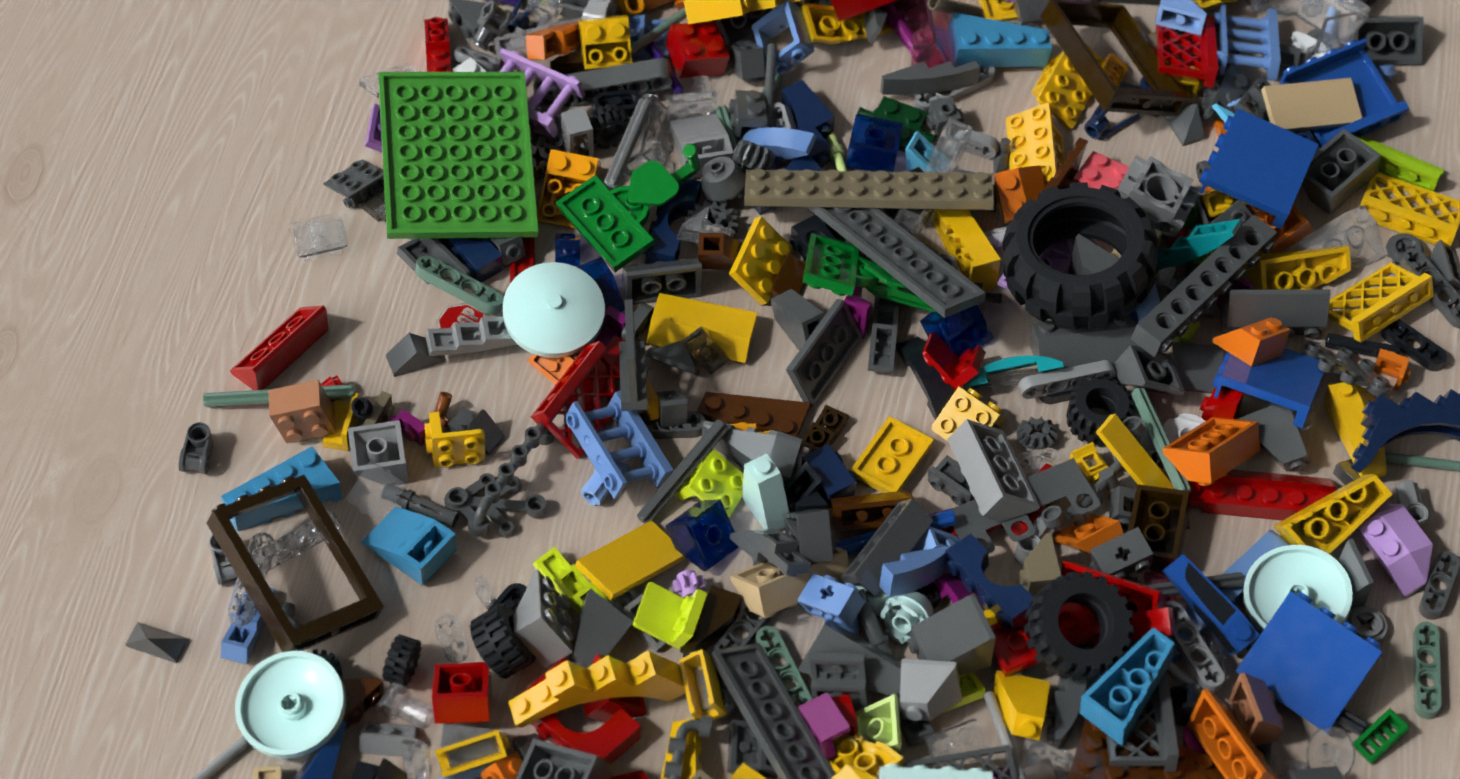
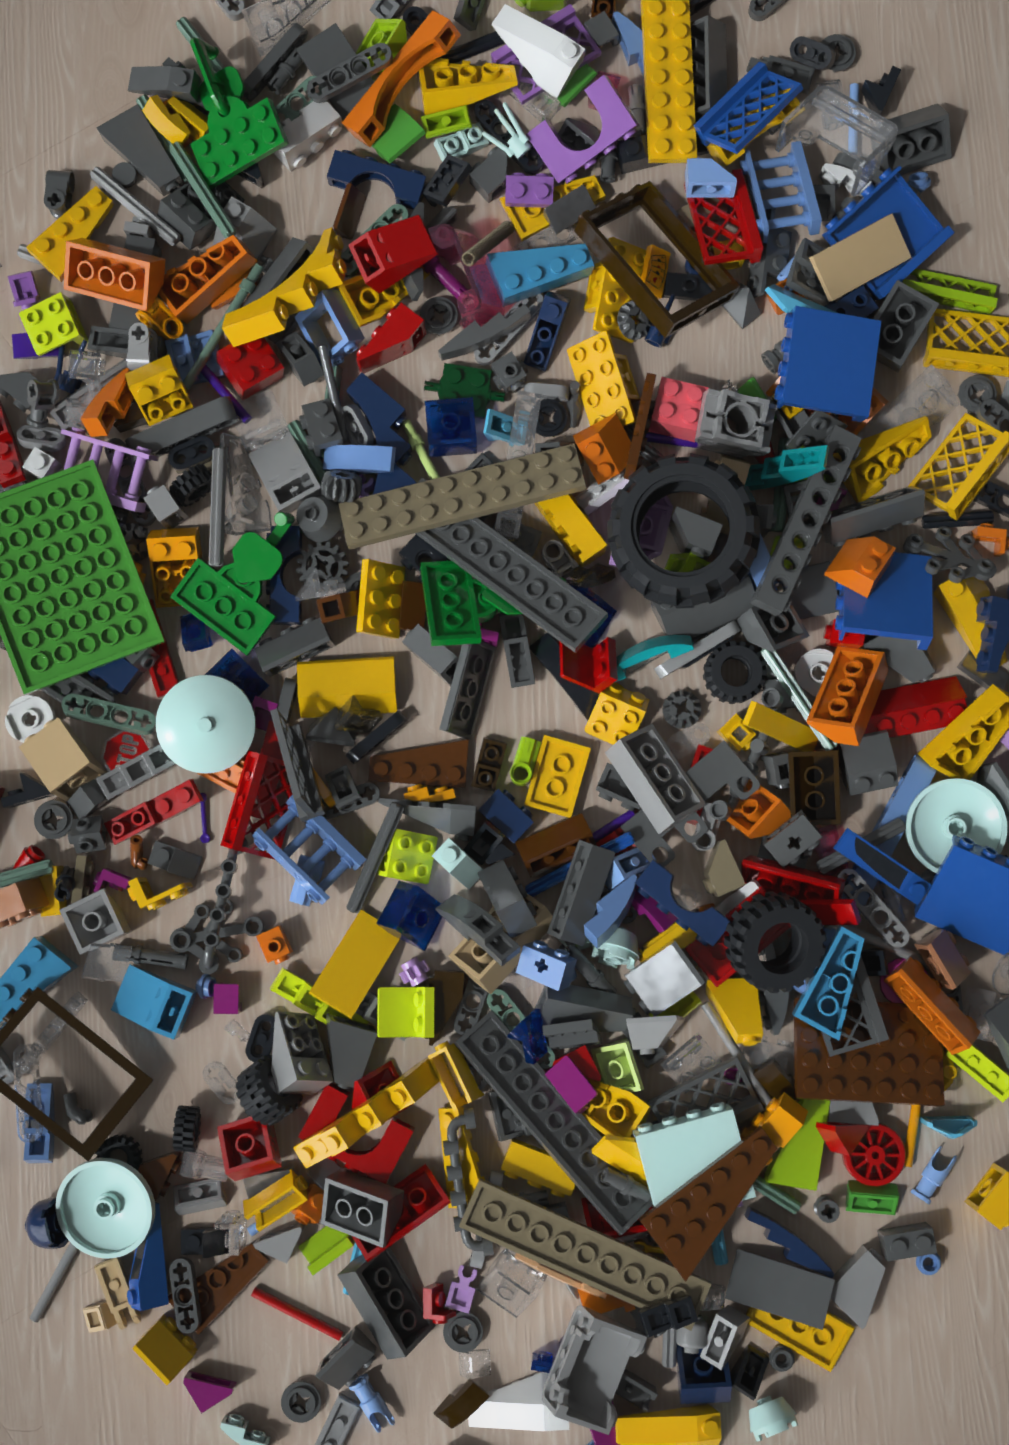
camera: 10 degrees left, 30 degrees up
(217, 710) = (43, 1225): none -> dark blue cylinder
(357, 335) = (33, 791): none -> black slope
(358, 360) = (45, 812): none -> dark grey gear
(377, 288) = (18, 713): none -> white plate
(397, 306) = (60, 758): none -> tan slope
(405, 375) = (88, 834): none -> dark grey brick
(468, 544) = (205, 986): none -> medium blue plate
(472, 383) = (154, 812): none -> red slope
(485, 559) = (226, 999): none -> magenta panel
(513, 420) = (205, 838): none -> dark purple hinge
(552, 525) = (275, 945): none -> orange brick
(717, 376) = (376, 737): none -> black beam
(795, 657) = (531, 1034): none -> clear blue slope
(840, 62) = (392, 340): none -> red slope
(859, 436) = (525, 759): none -> lime piece
(894, 55) = (441, 305): none -> dark grey gear
(977, 158) = (547, 407): none -> black gear
(992, 95) = (547, 330): none -> dark blue slope
(1070, 106) = (627, 324): none -> dark grey gear
(1218, 518) = (869, 765): none -> dark grey slope

